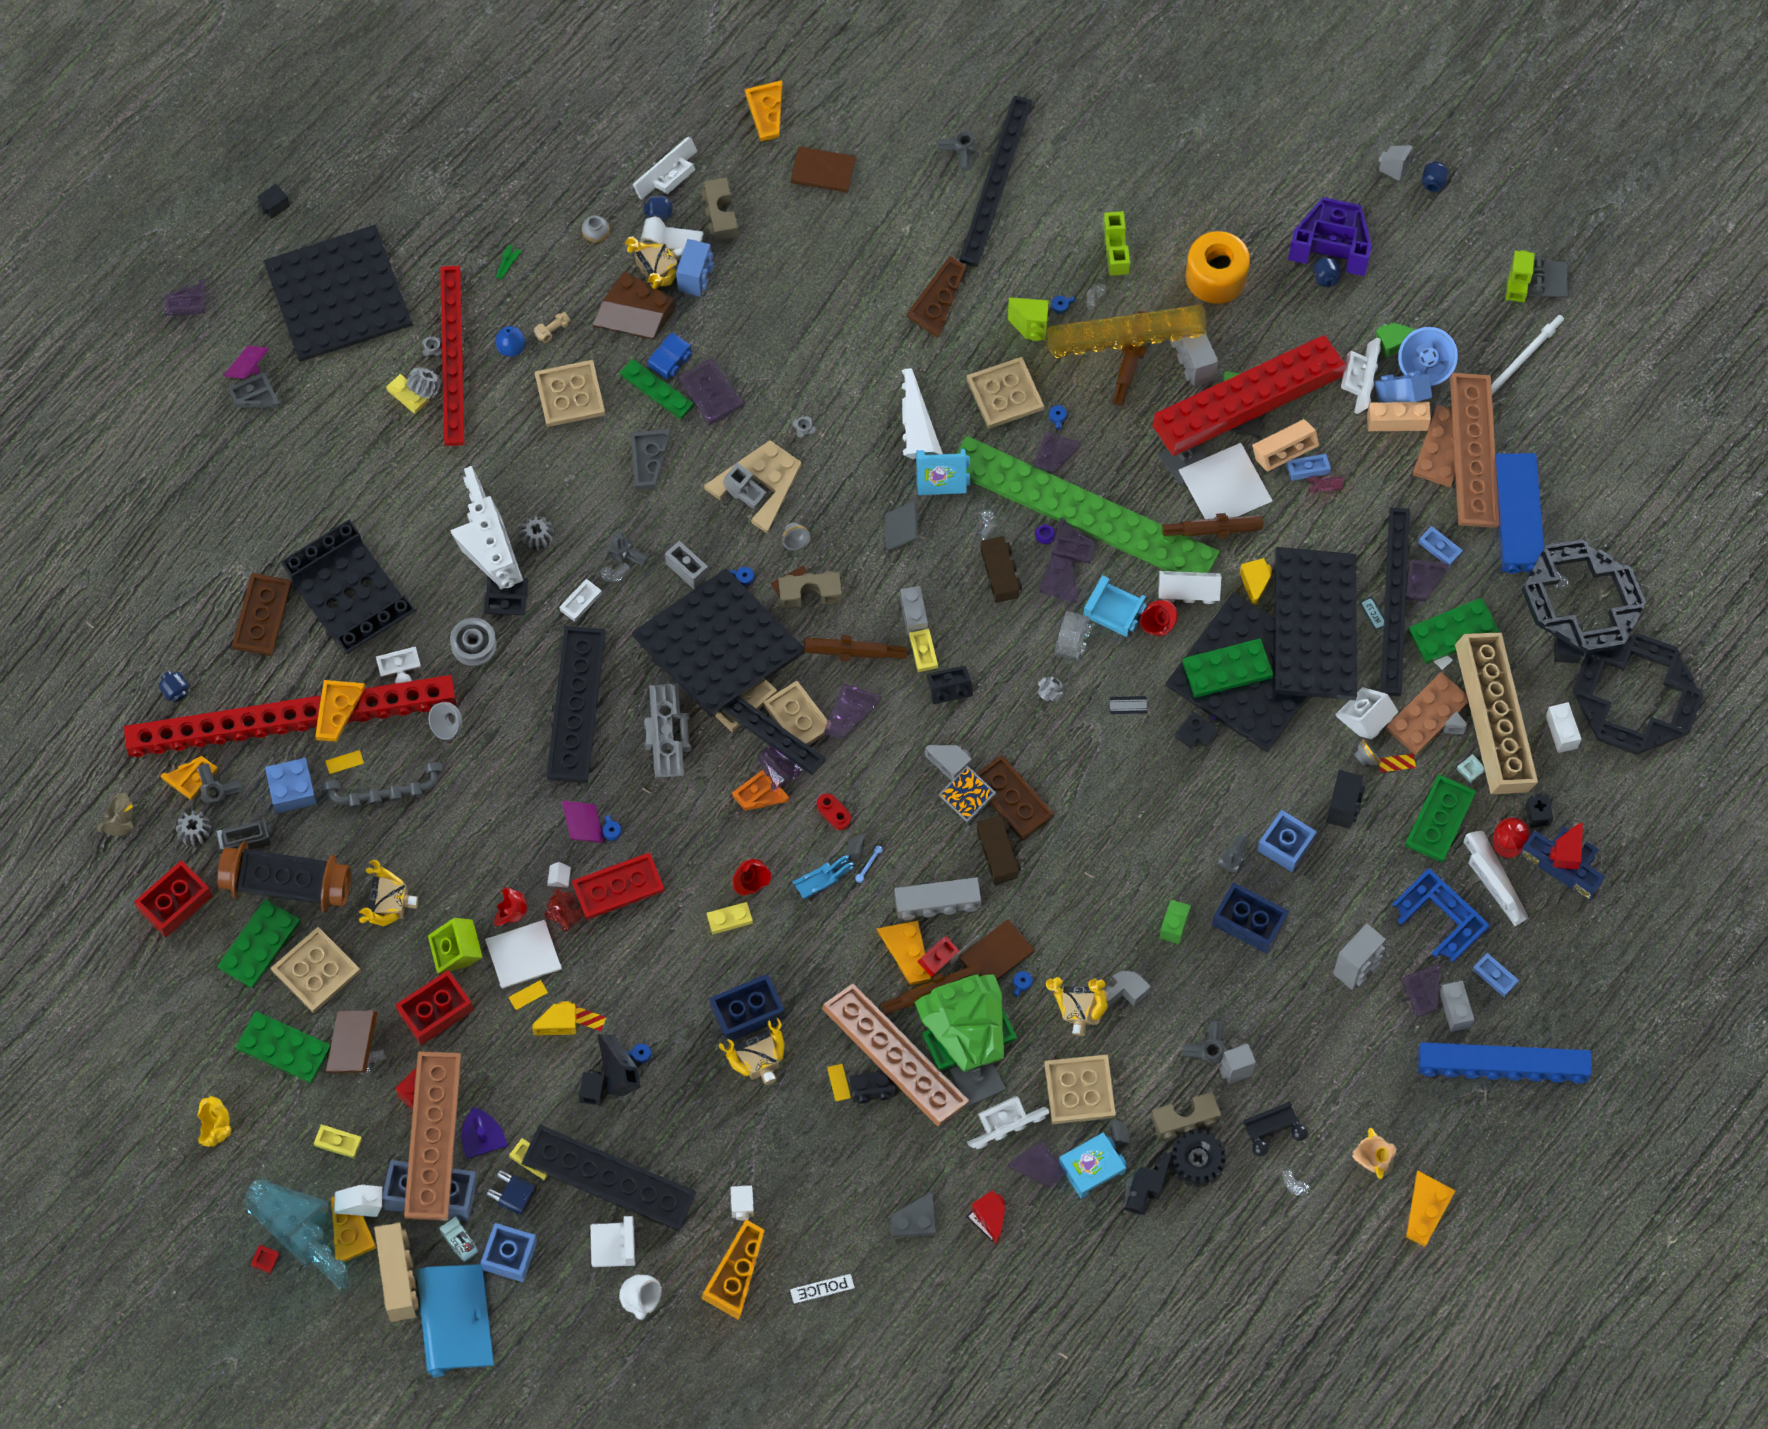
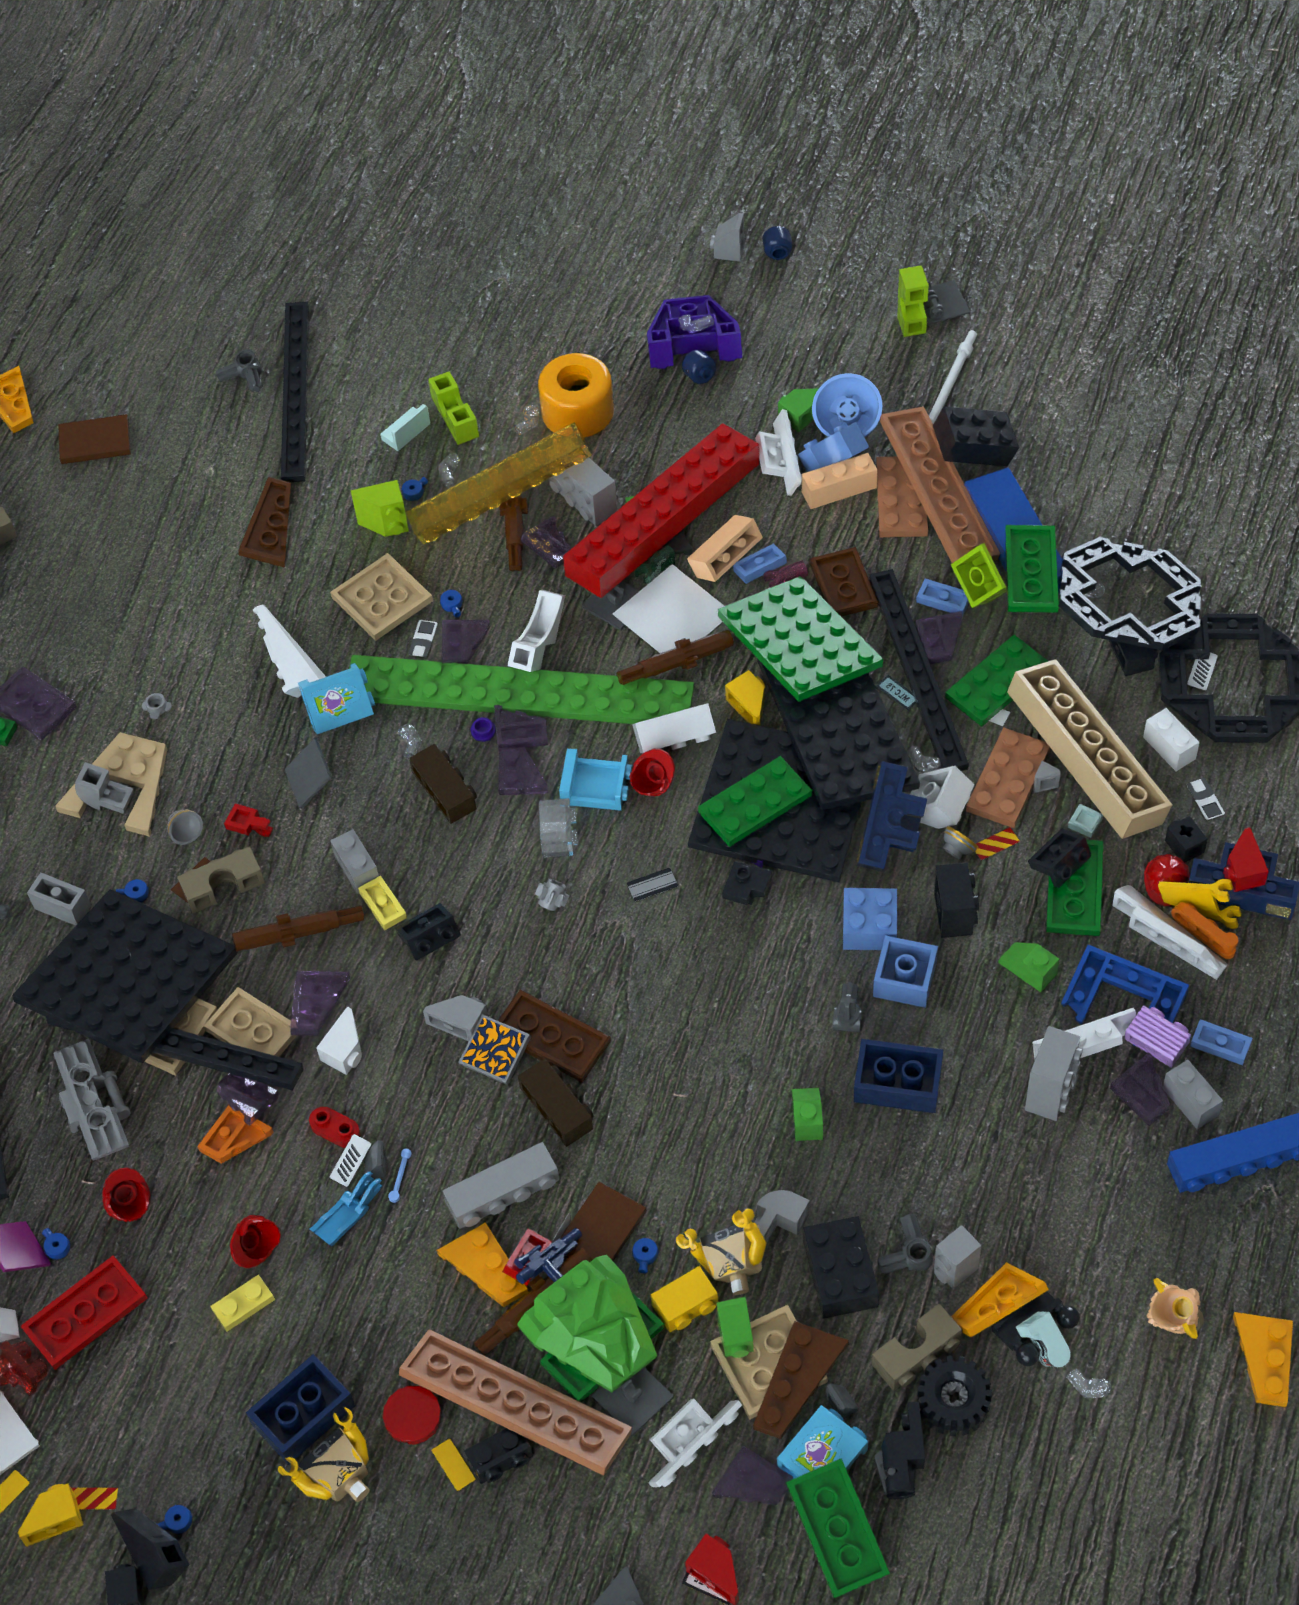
camera: 15 degrees left, 10 degrees down
(671, 812) = (125, 1195): none -> red piece
(821, 1038) = (412, 1414): none -> red tile
(837, 840) = (350, 1160): none -> white sticker
(843, 546) = (244, 819): none -> red plate
(858, 751) = (341, 1044): none -> white slope
(953, 964) = (548, 1260): none -> dark blue piece
(1025, 439) = (422, 638): none -> sticker
(1037, 1025) = (684, 1299): none -> yellow brick
(1063, 1058) = (735, 1327): none -> bright green slope
(1073, 246) = (406, 427): none -> light aqua panel
(1082, 1217) = (837, 1528): none -> green plate
(1099, 1102) = (800, 1369): none -> reddish brown wing
(1114, 470) = (541, 631): none -> white arch
(1150, 390) = (547, 542): none -> clear purple wing
(1154, 1041) = (840, 1267): none -> black brick
(1175, 272) = (530, 419): none -> clear arm
(1230, 439) = (658, 563): none -> clear green plate
(1255, 1102) = (997, 1298): none -> light orange wing
(1277, 789) = (868, 917): none -> medium blue brick
(1277, 1142) = (1047, 1338): none -> light aqua leg
(1313, 544) = (800, 638): none -> plate
(1323, 719) = (891, 818): none -> dark blue piece
(1337, 234) = (696, 325): none -> clear arm
(1367, 679) = (923, 763): none -> clear arm
(1368, 505) = (844, 581): none -> reddish brown tile
(1382, 867) = (1031, 964): none -> bright green slope
(1408, 938) = (1099, 1033): none -> white bracket
(1438, 793) = (1061, 856): none -> black bracket
(1449, 954) = (1158, 1036): none -> lavender brick
(1471, 542) = (979, 576): none -> lime slope
(1514, 549) = (1031, 568): none -> green plate
(1521, 417) = (975, 436): none -> black brick
(1522, 886) = (1205, 930): none -> orange plate
(1529, 864) = (1203, 898): none -> yellow flag
(1570, 783) = (1205, 798): none -> sticker
(1614, 679) = (1202, 672): none -> white sticker

